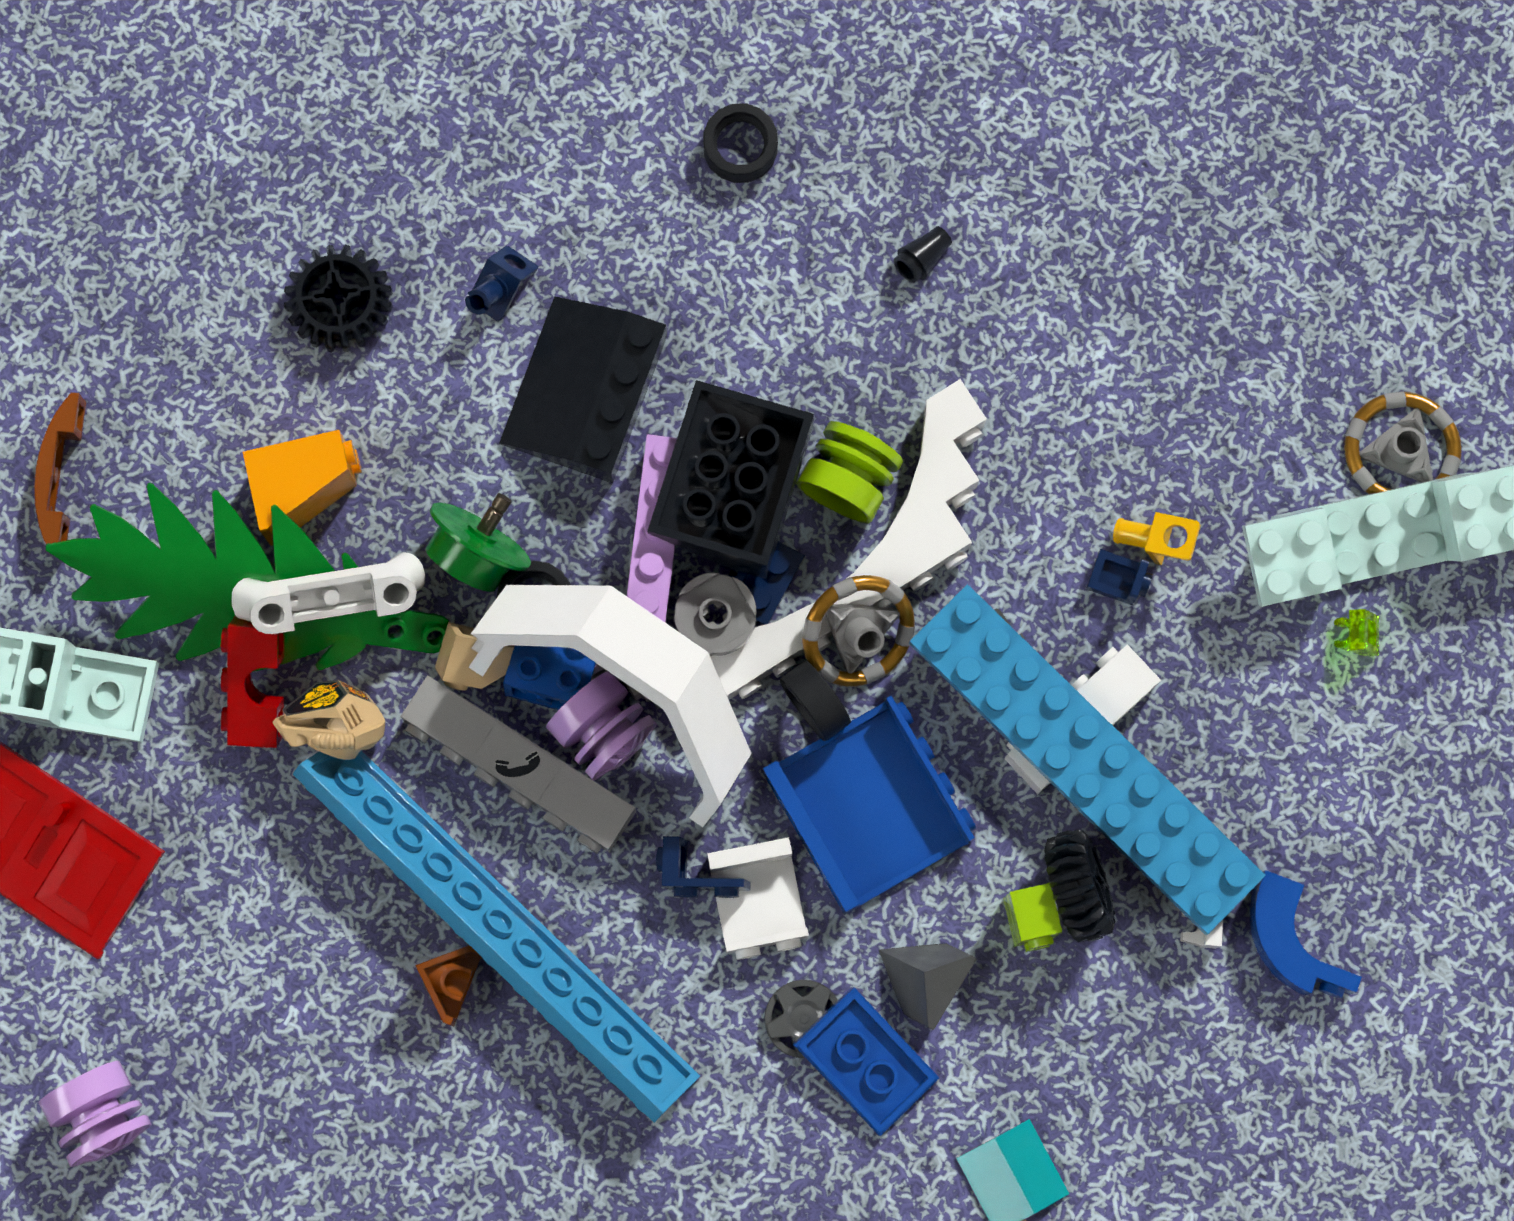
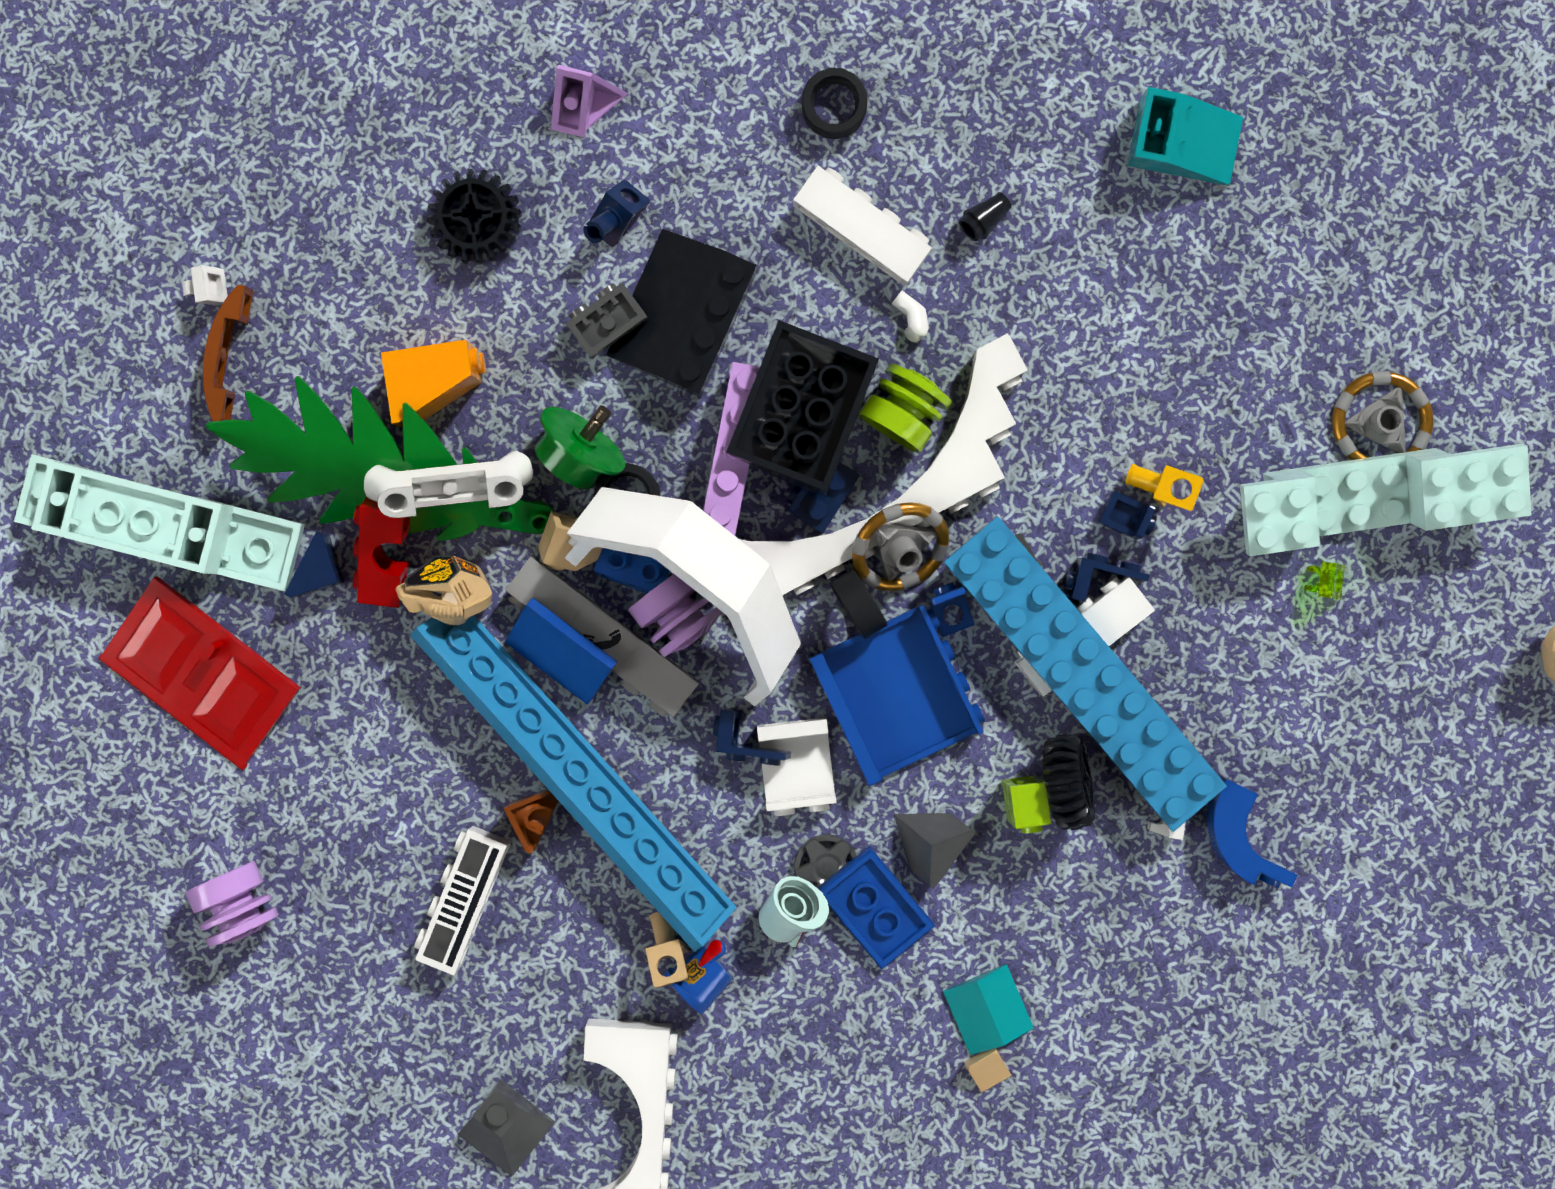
camera: 10 degrees right, 10 degrees up
(33, 399) = (206, 285): none -> white tile
(176, 713) = (317, 569): none -> dark blue slope
(371, 1090) = (462, 900): none -> brick
(452, 160) = (581, 100): none -> lavender slope
(469, 783) = (560, 651): none -> blue tile
(497, 400) = (606, 319): none -> dark grey bracket
(619, 1128) = (666, 947): none -> tan bracket
(664, 1158) = (705, 977): none -> blue hat
(722, 592) = (788, 506): light grey plate -> none
(765, 1067) = (793, 909): none -> light aqua hat
(783, 274) = (862, 225): none -> white brick
(854, 372) = (915, 314): none -> white arm
(924, 685) = (946, 596): none -> blue bracket
(1069, 656) = (1079, 580): none -> dark blue bracket
(1141, 150) = (1184, 137): none -> teal slope

